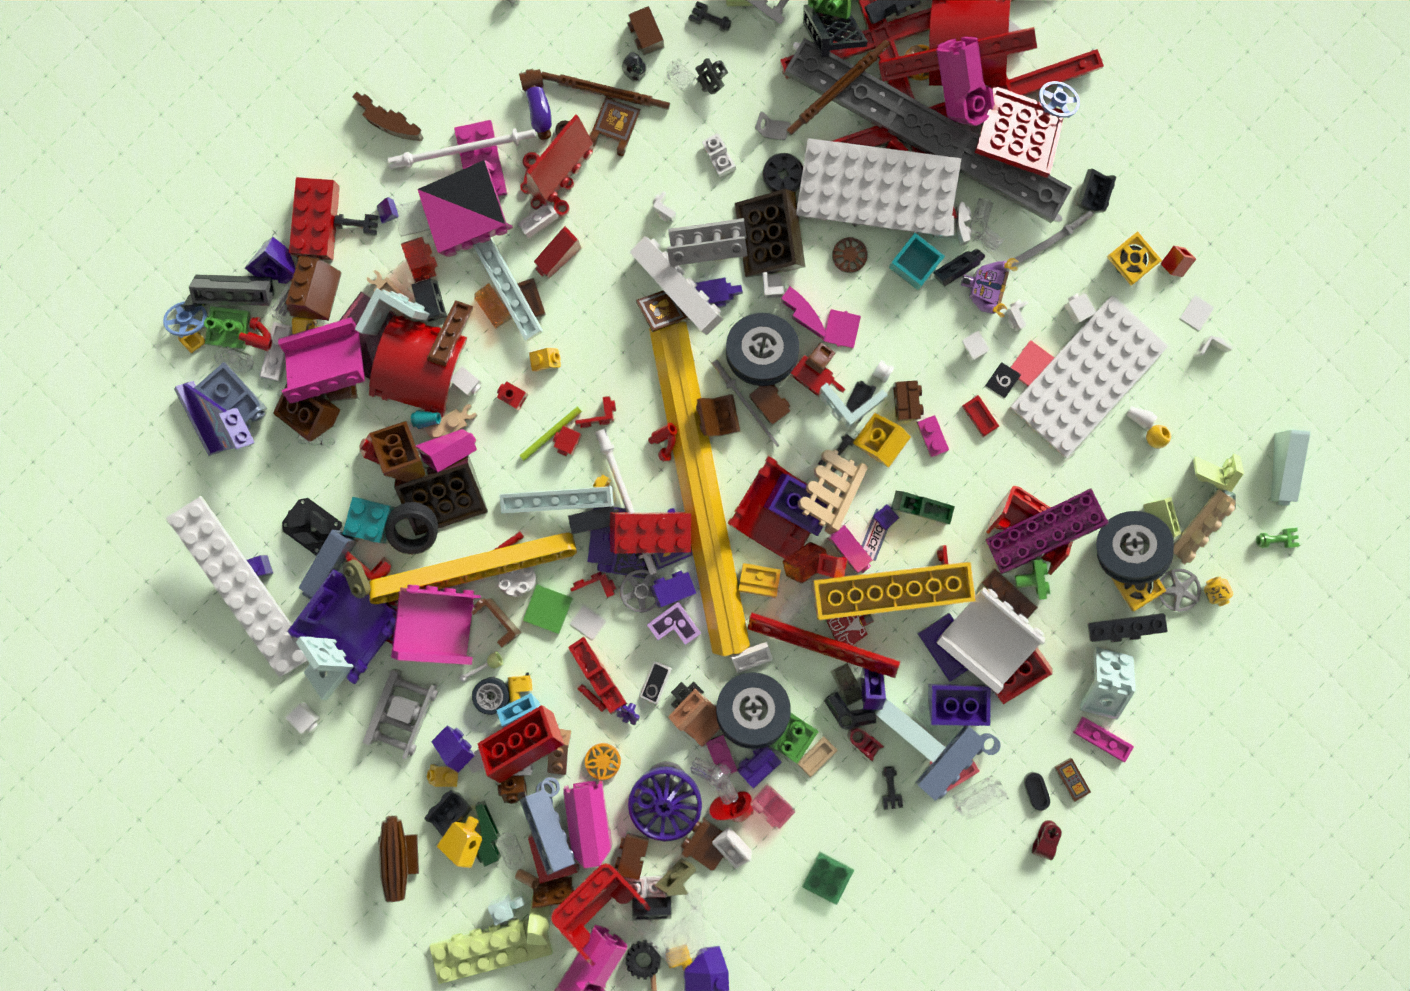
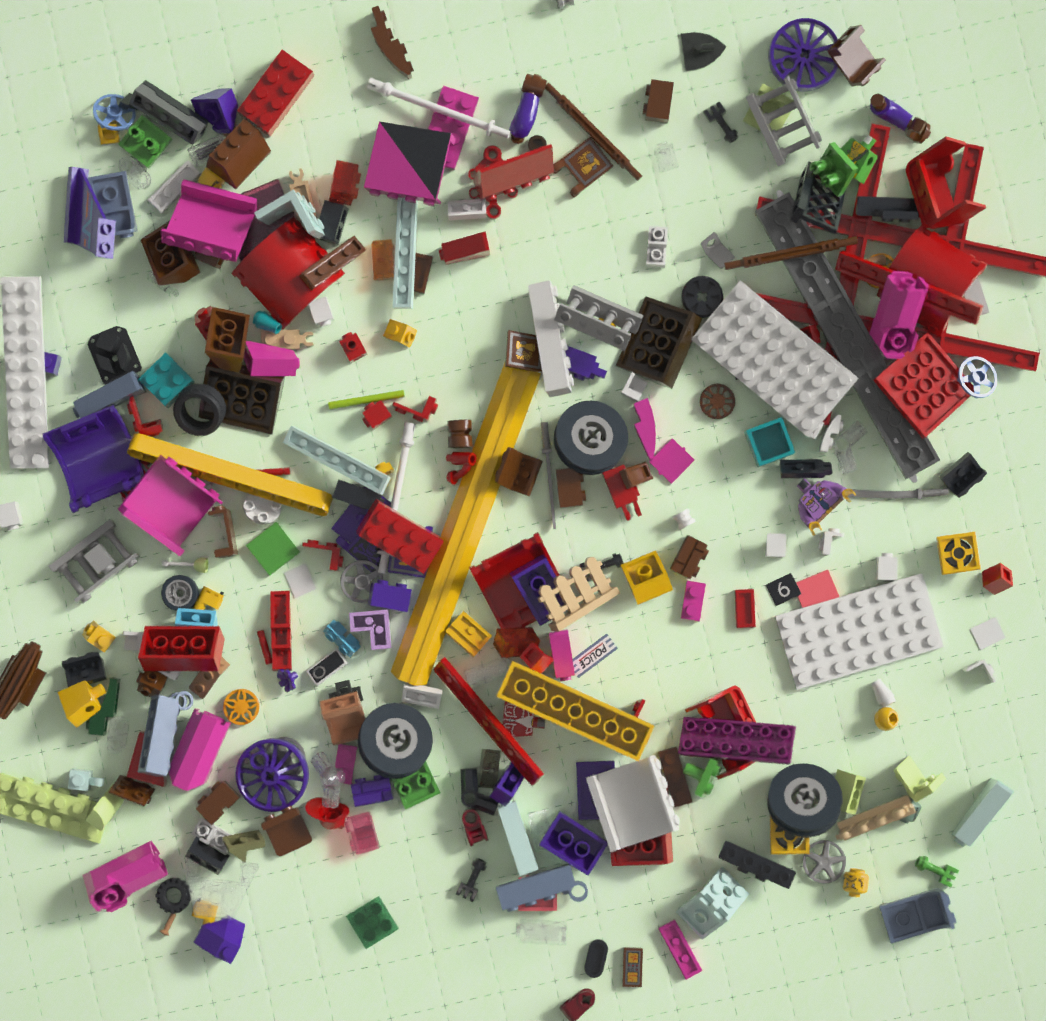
camera: 30 degrees right, 0 degrees up
(254, 340) = (162, 167): red plant -> none
(324, 657) = (60, 474): light aqua bracket -> none
(340, 222) = (317, 123): black hinge -> none
(356, 578) = (127, 424): olive plate -> none
(387, 210) = (342, 122): slope -> none
(411, 218) = (359, 141): clear piece -> none
(453, 748) = (122, 617): dark purple brick -> none
(527, 878) = (117, 766): medium nougat piece -> none
(587, 901) = (161, 814): red windscreen -> none
(634, 67) = (629, 127): black rock -> none
(648, 414) = (459, 433): none -> reddish brown wheel
(661, 653) = (334, 633): none -> medium azure hinge
(663, 211) = (579, 268): white bracket -> none
(714, 76) = (694, 176): pearl dark grey piece -> none
(733, 848) = (307, 847): white slope -> none
(817, 756) = (426, 814): tan tile -> none
(841, 412) = (623, 533): light aqua bracket -> none
(859, 396) = (646, 532): black hinge -> none
(885, 517) = (610, 645): dark purple tile -> none
(922, 507) = (646, 656): dark green slope -> none
(1288, 585) = (917, 915): none -> sand blue bracket

